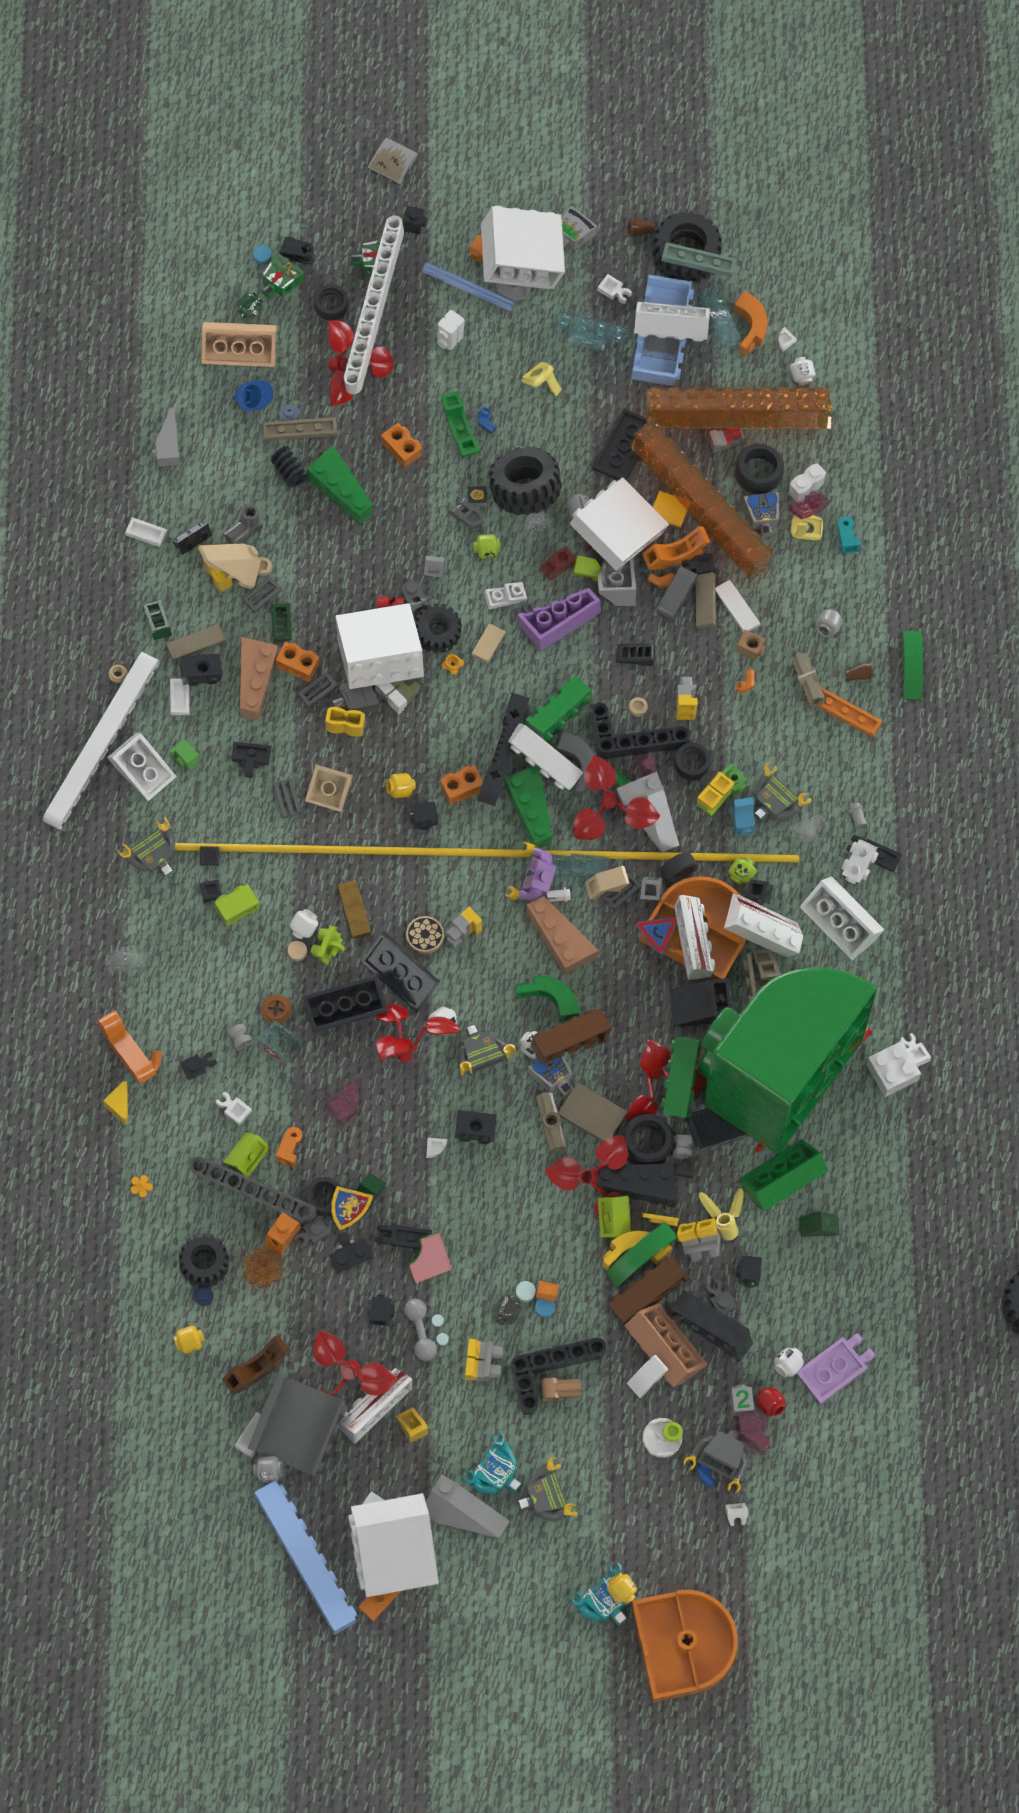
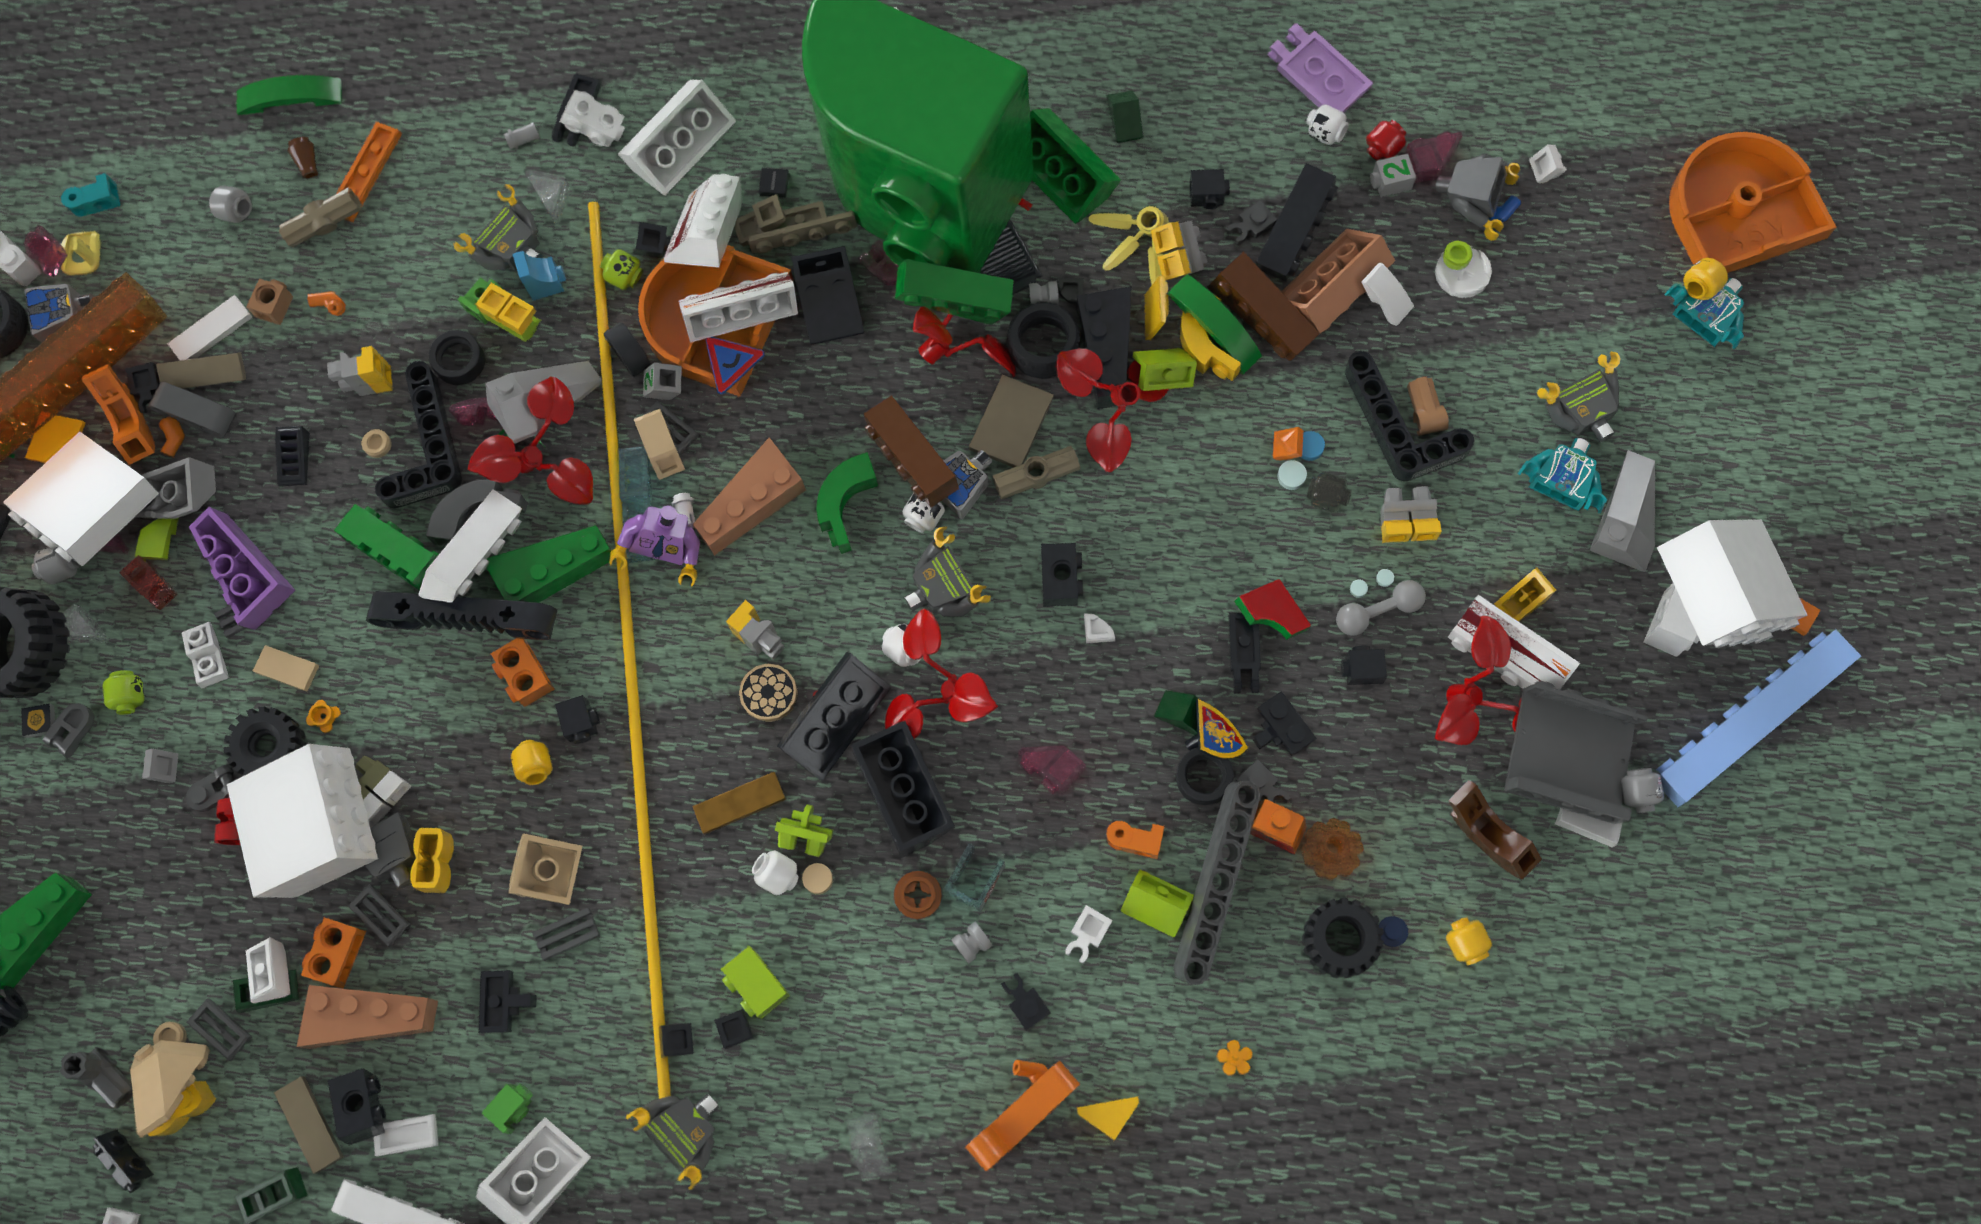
camera: 85 degrees left, 5 degrees up
(292, 623) = (267, 971): none -> white slope

